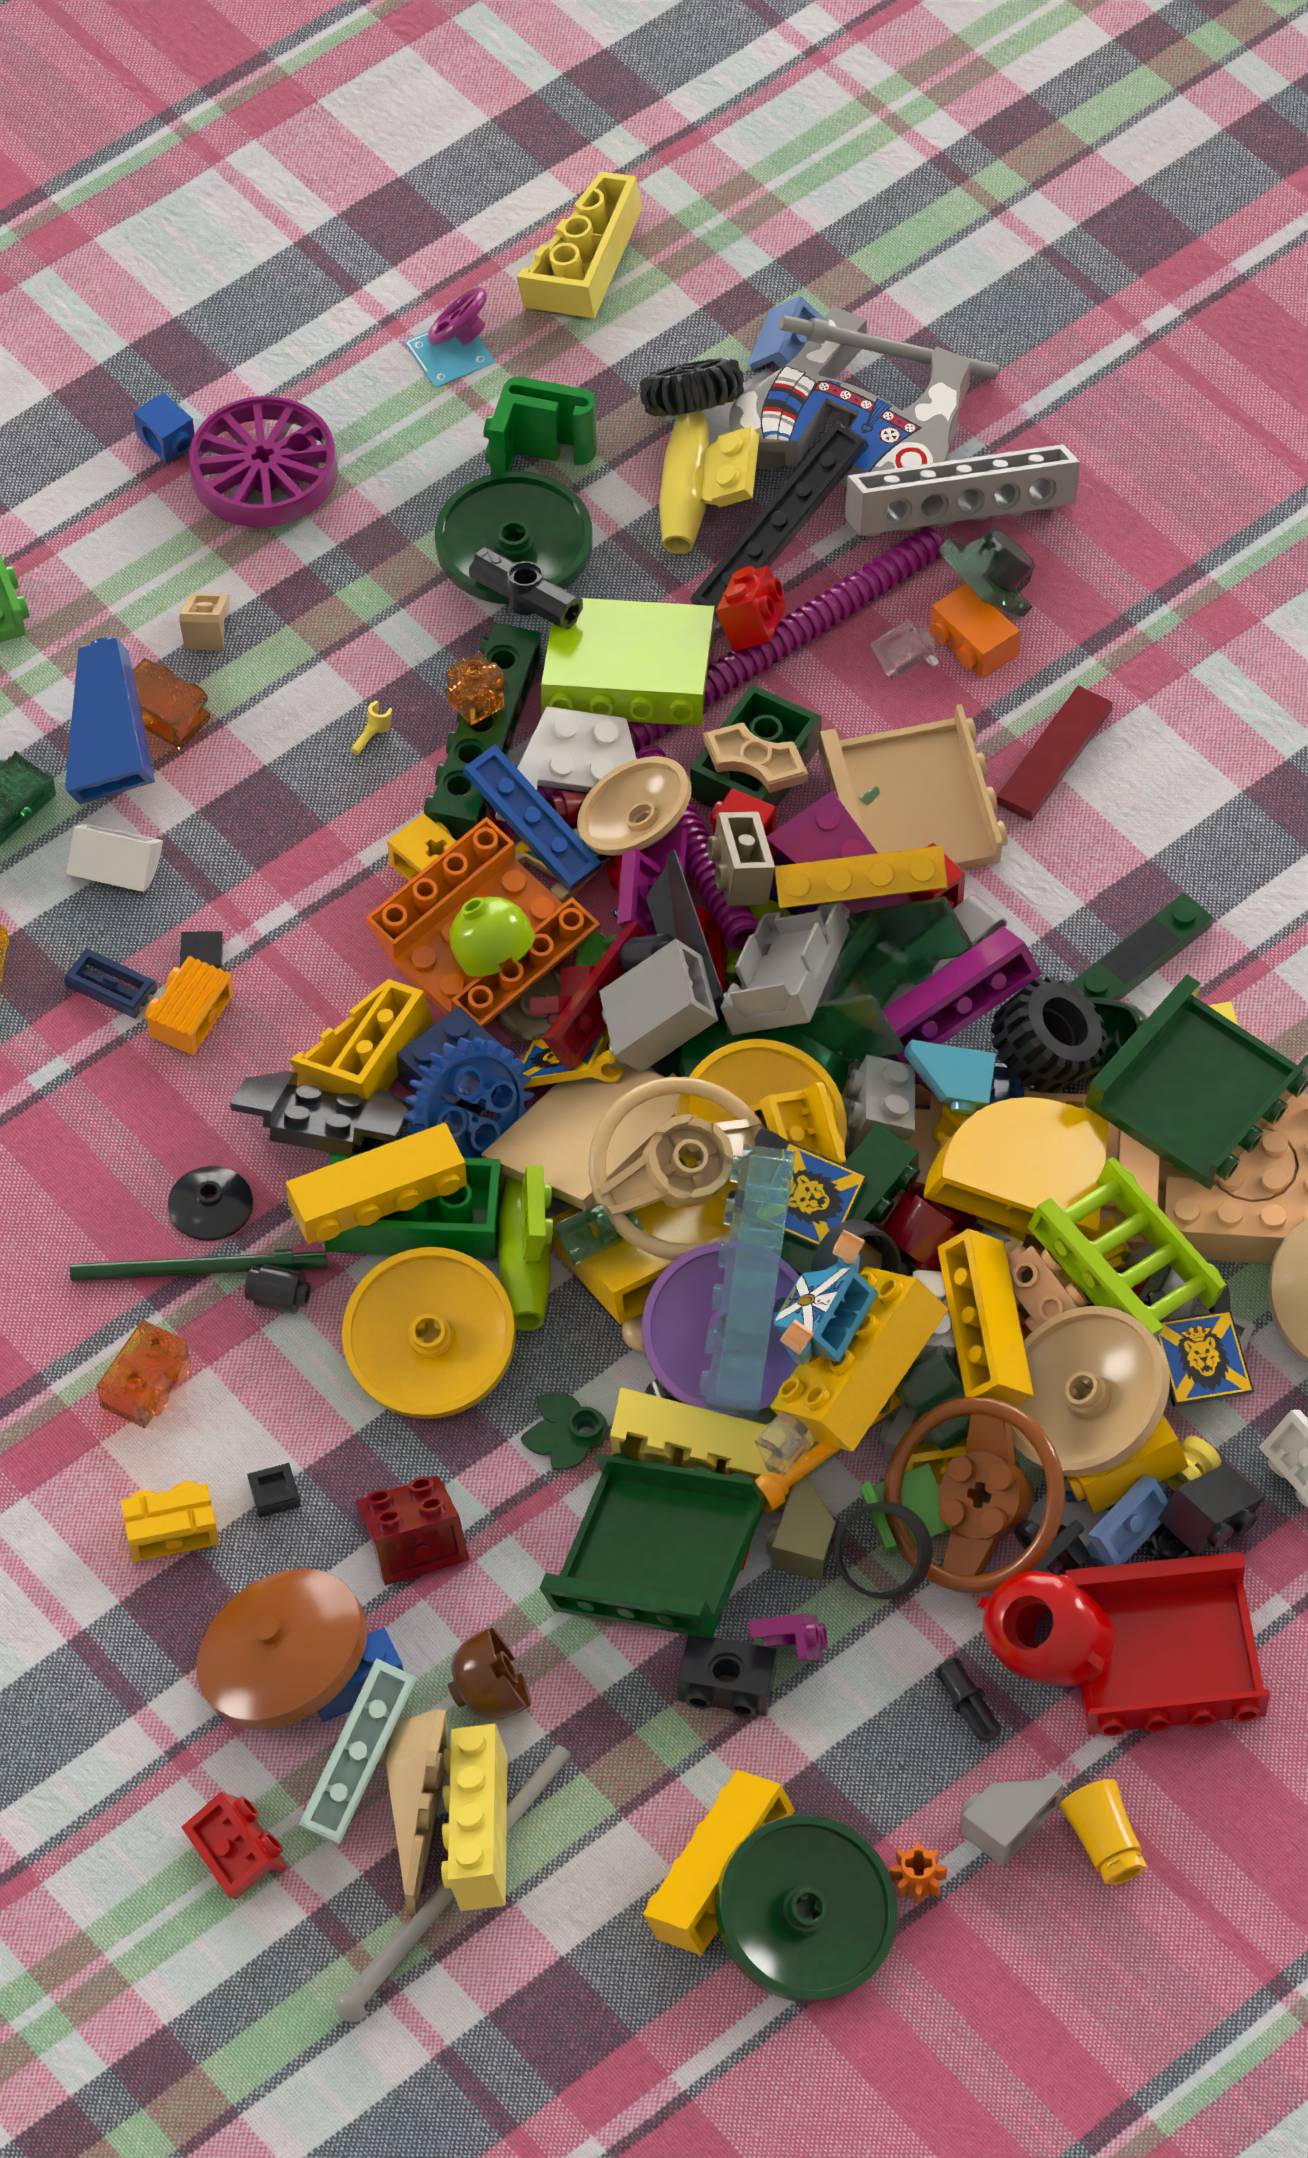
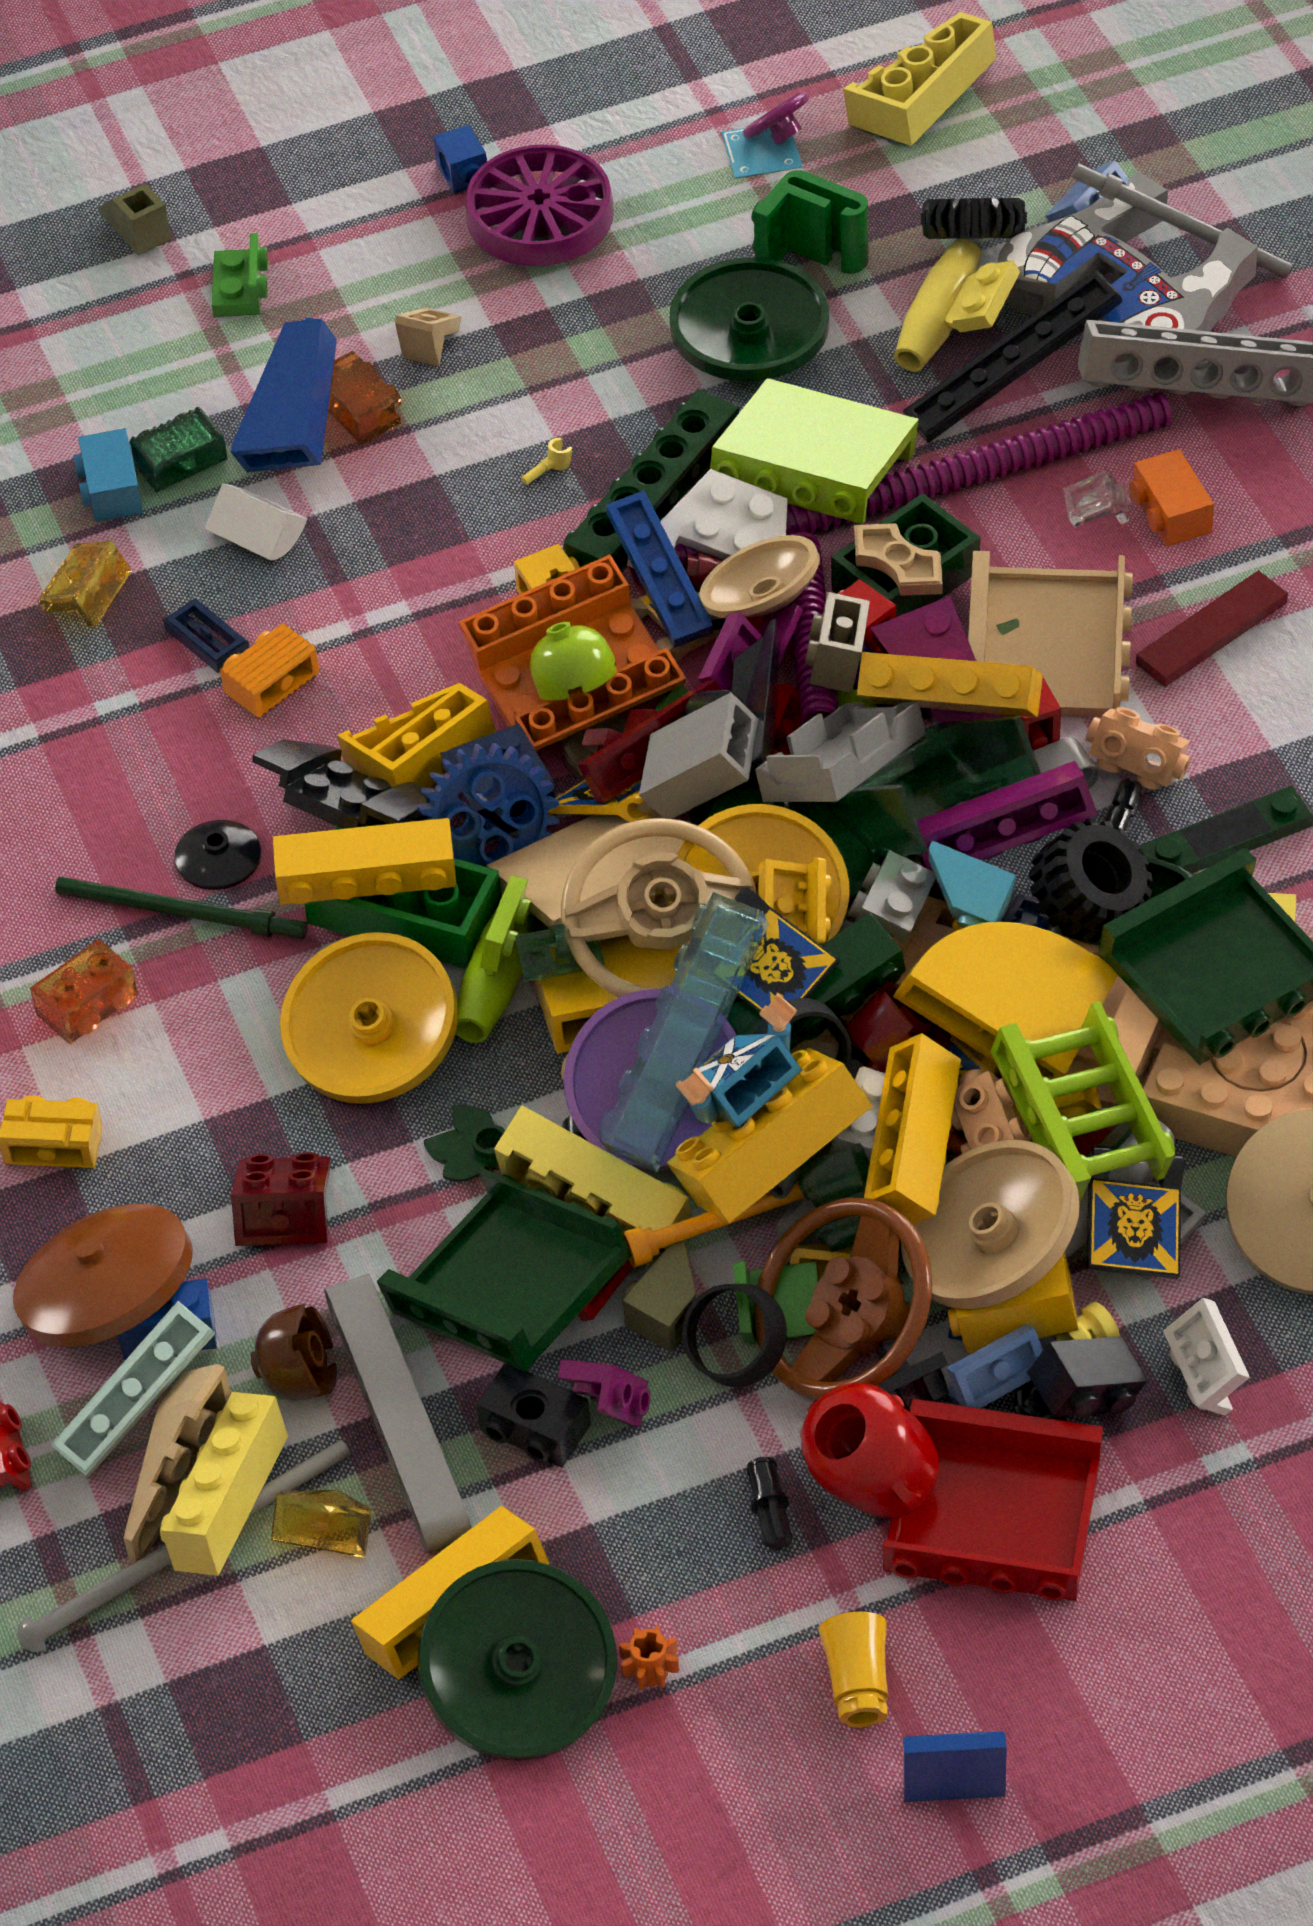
camera: 20 degrees right, 5 degrees down
(203, 945) = (307, 622): black tile -> none
(274, 1490) = (166, 1131): black tile -> none
(277, 1288) = (244, 944): black brick -> none
(475, 687) = (649, 438): clear orange brick -> none
(526, 588) = (735, 361): black piece -> none
(573, 1826) = (322, 1521): none -> clear yellow slope
(602, 1705) = (398, 1412): none -> light grey beam
(751, 607) = (951, 425): red brick -> none
(783, 1443) = (666, 1200): clear brick -> none
(993, 569) = (1209, 442): clear green piece -> none
(1008, 1815) = (765, 1626): light grey slope -> none
(1026, 889) = (1125, 741): none -> light nougat brick
(1039, 945) = (1124, 804): none -> black piece
(1227, 1898) = (954, 1766): none -> blue tile

